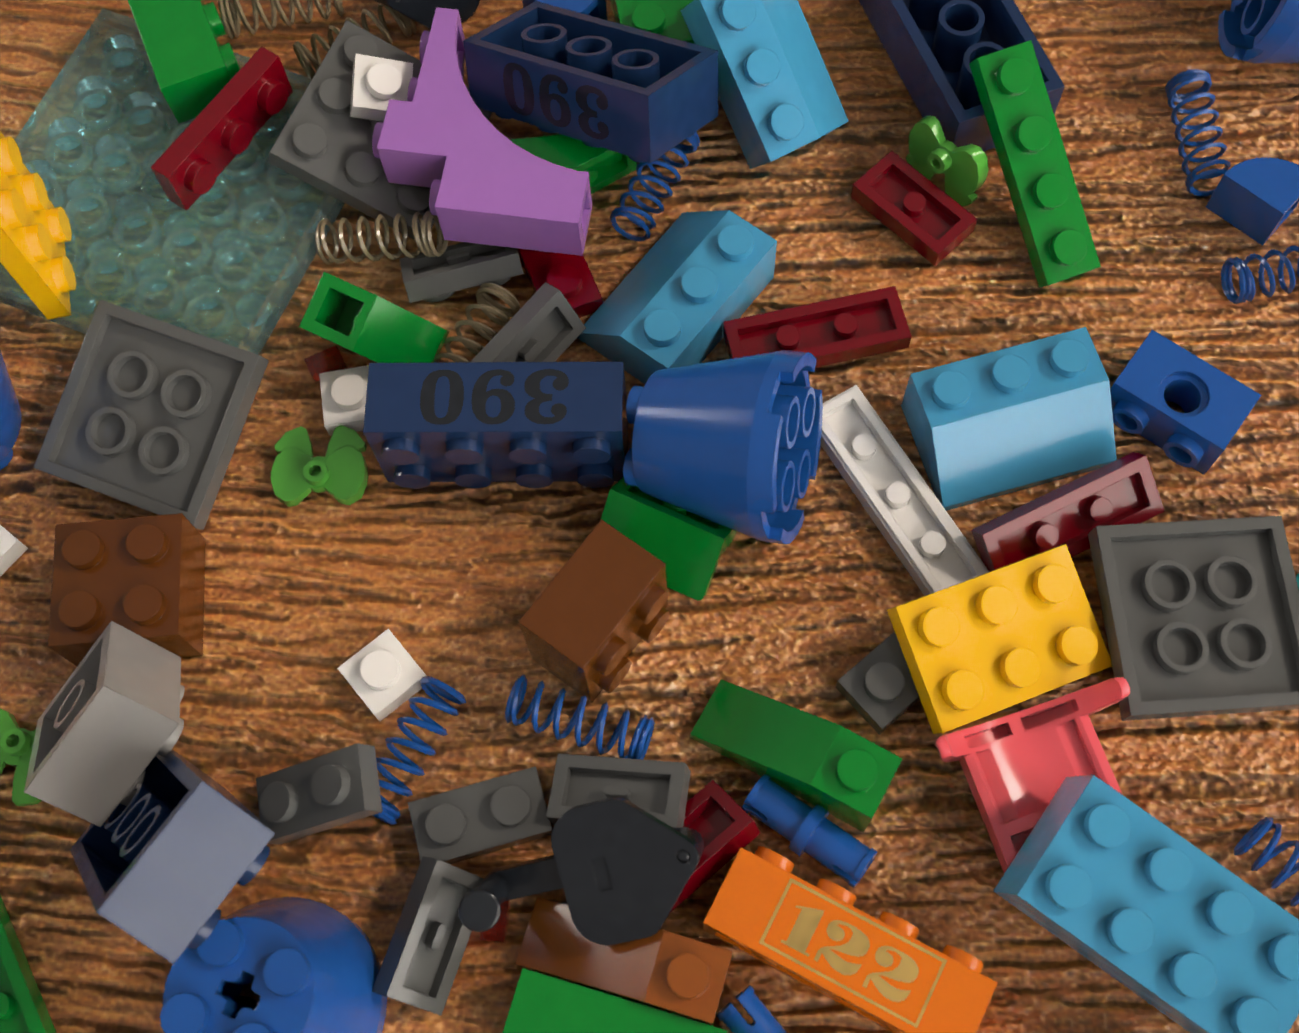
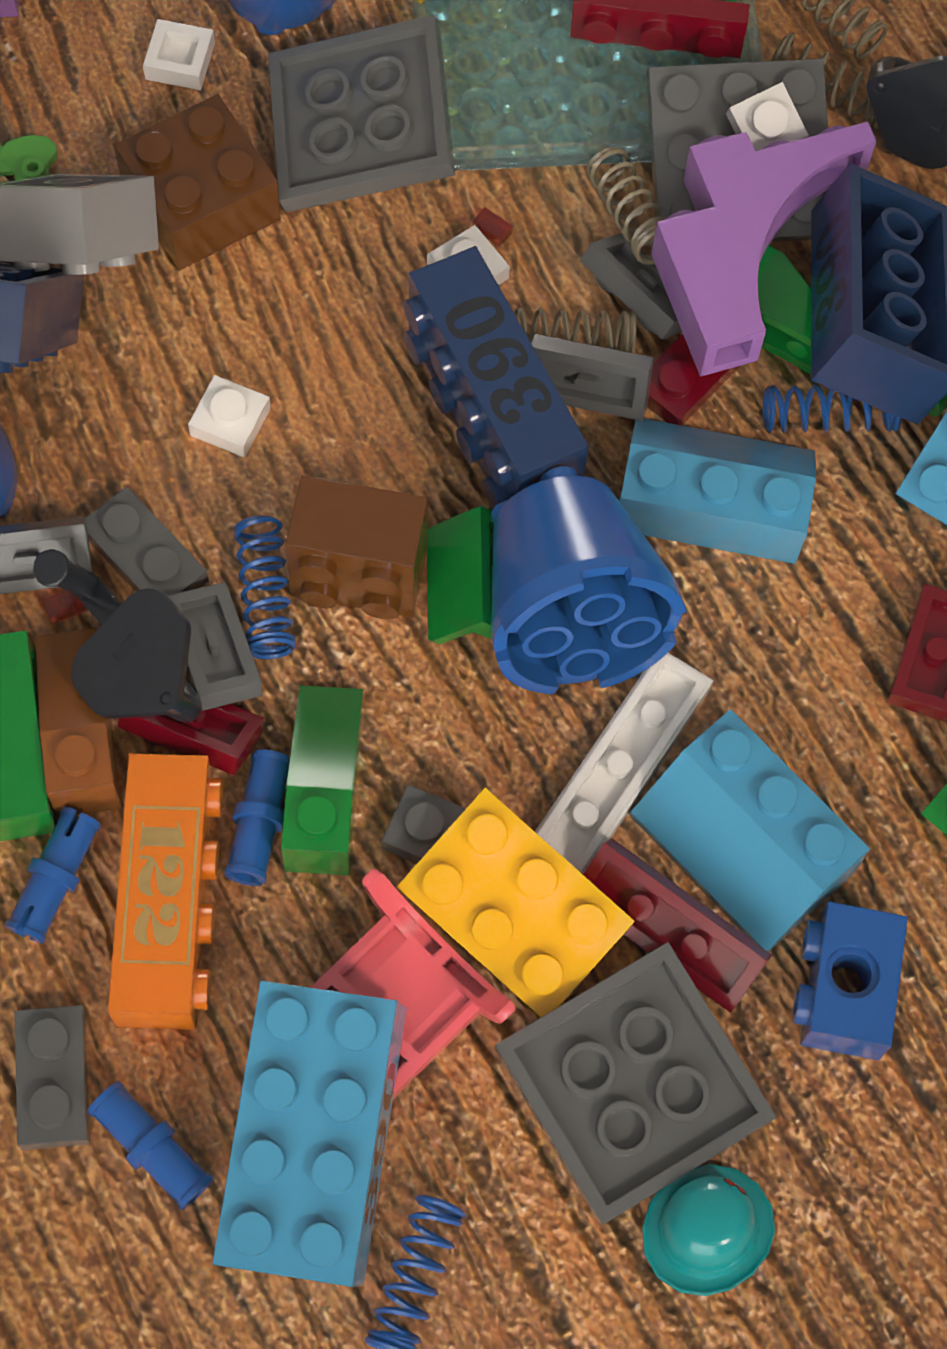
camera: 55 degrees right, 0 degrees up
(320, 793) = (97, 412): dark grey plate -> none
(339, 473) = (375, 259): bright green piece -> none
(370, 324) = (535, 241): green slope -> none
(428, 684) = (111, 466): blue piece -> none
(828, 329) = (748, 623): dark red plate -> none

